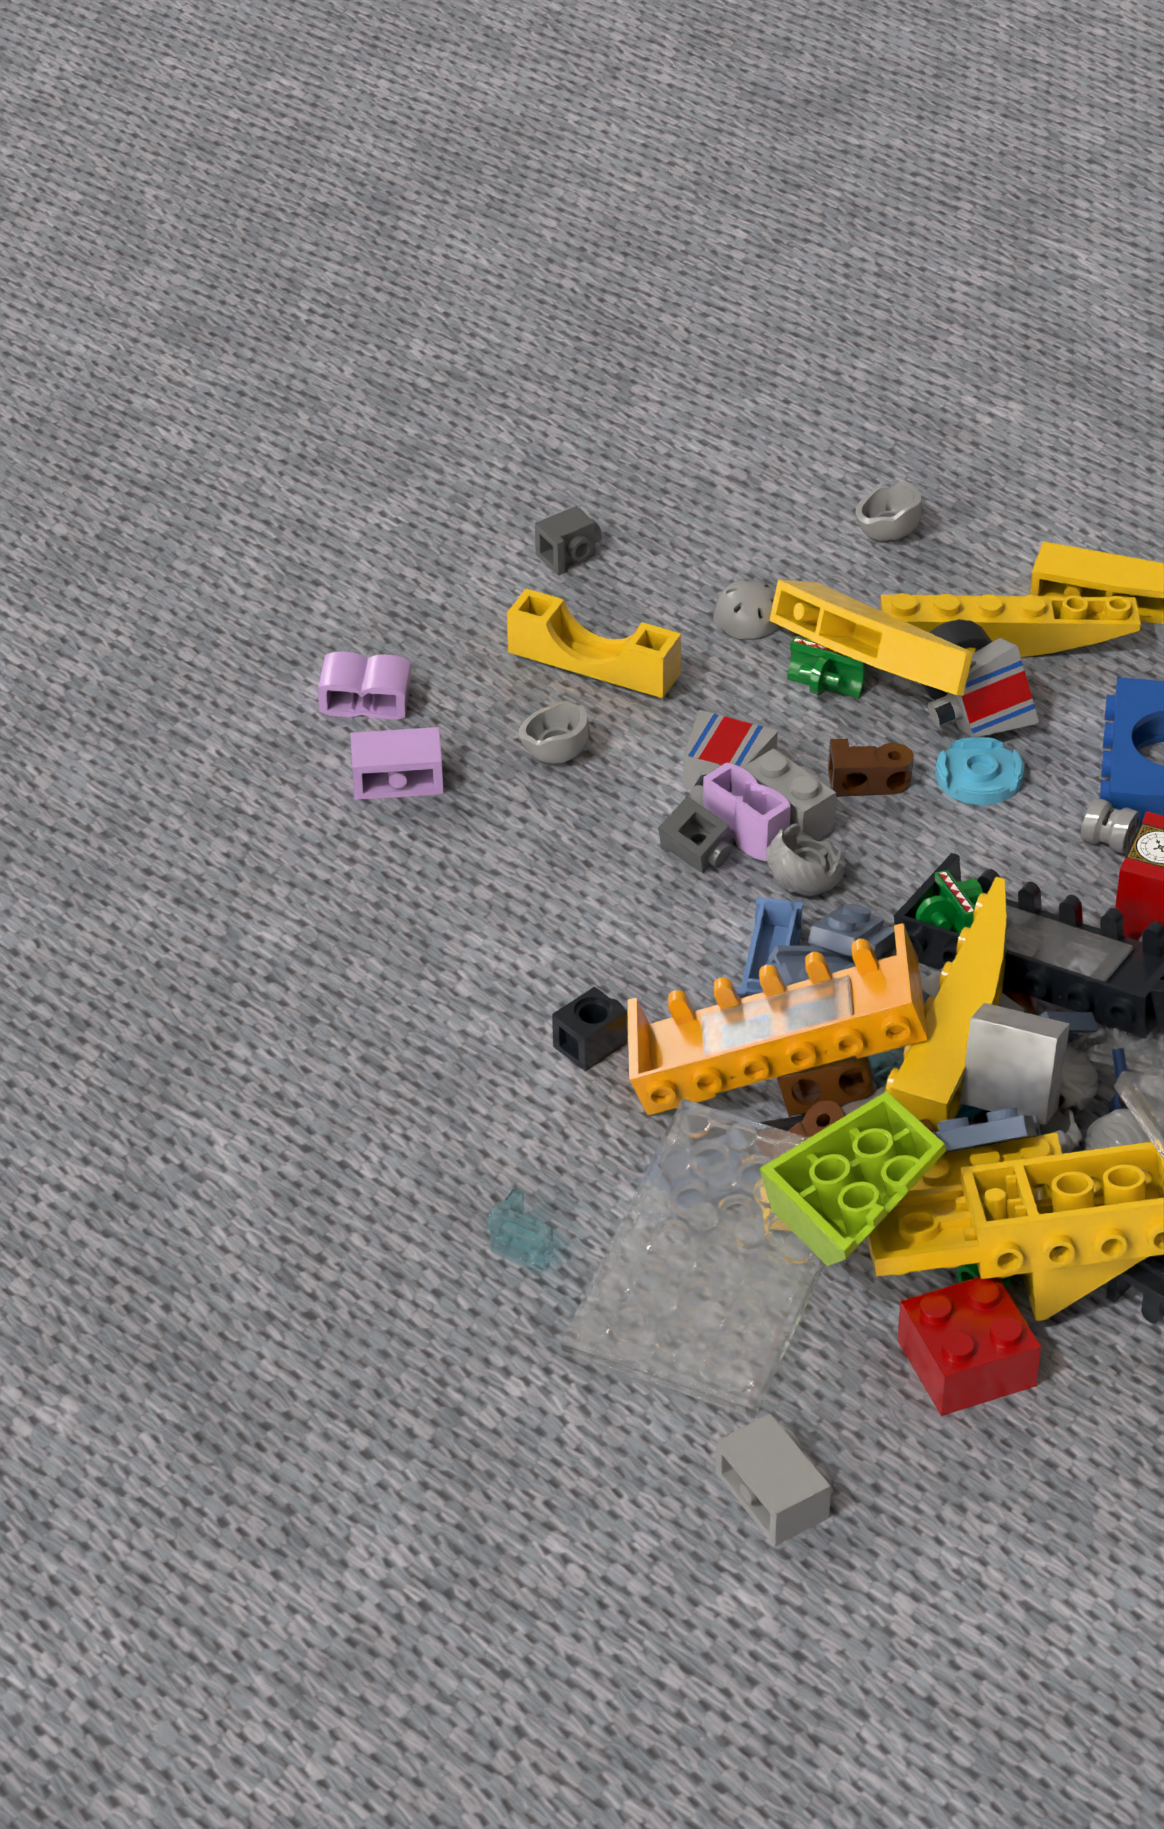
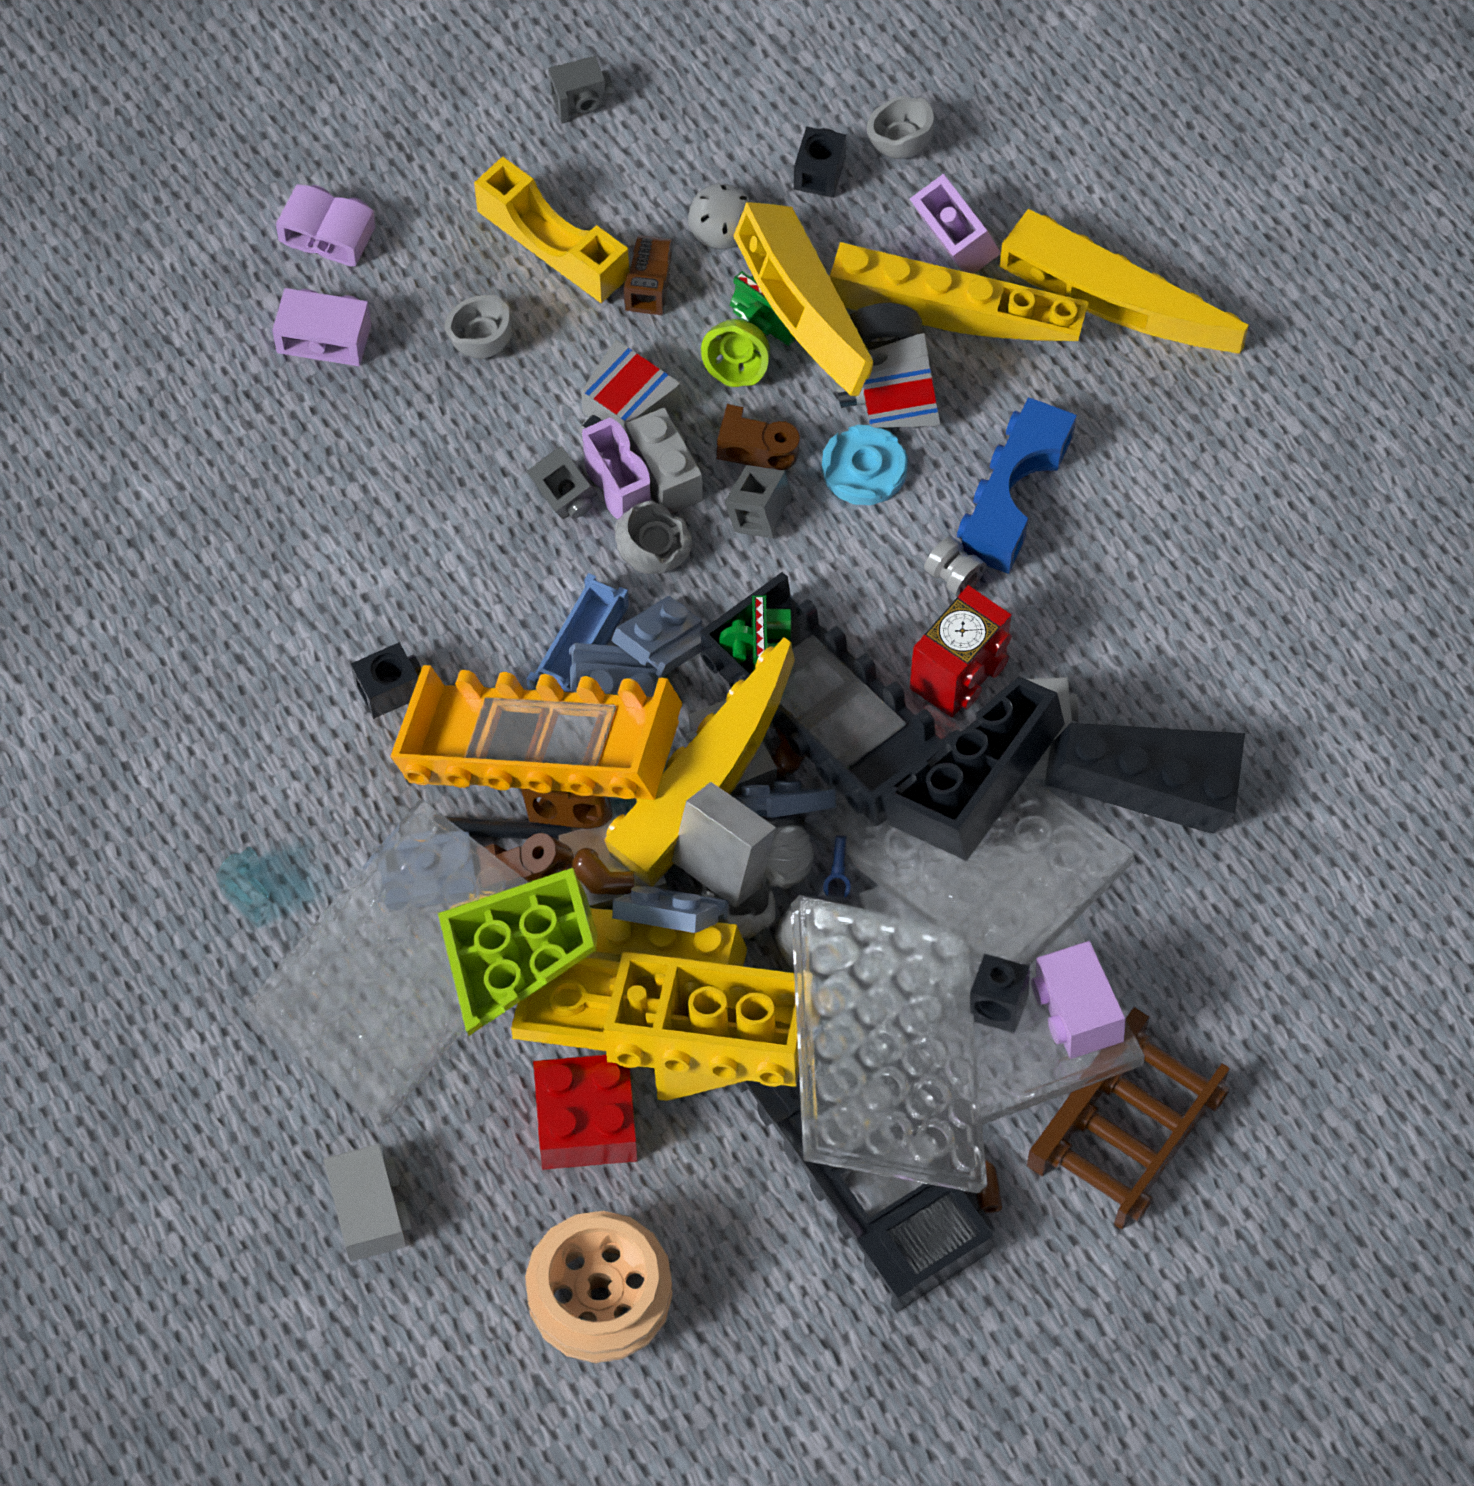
camera: 15 degrees right, 20 degrees up
(702, 661) = (648, 274): none -> reddish brown leg
(816, 700) = (737, 345): none -> lime helmet
(825, 551) = (819, 175): none -> black brick
(895, 812) = (758, 501): none -> dark grey brick
(978, 565) = (955, 225): none -> lavender brick
(1082, 1493) = (603, 1334): none -> light nougat wheel

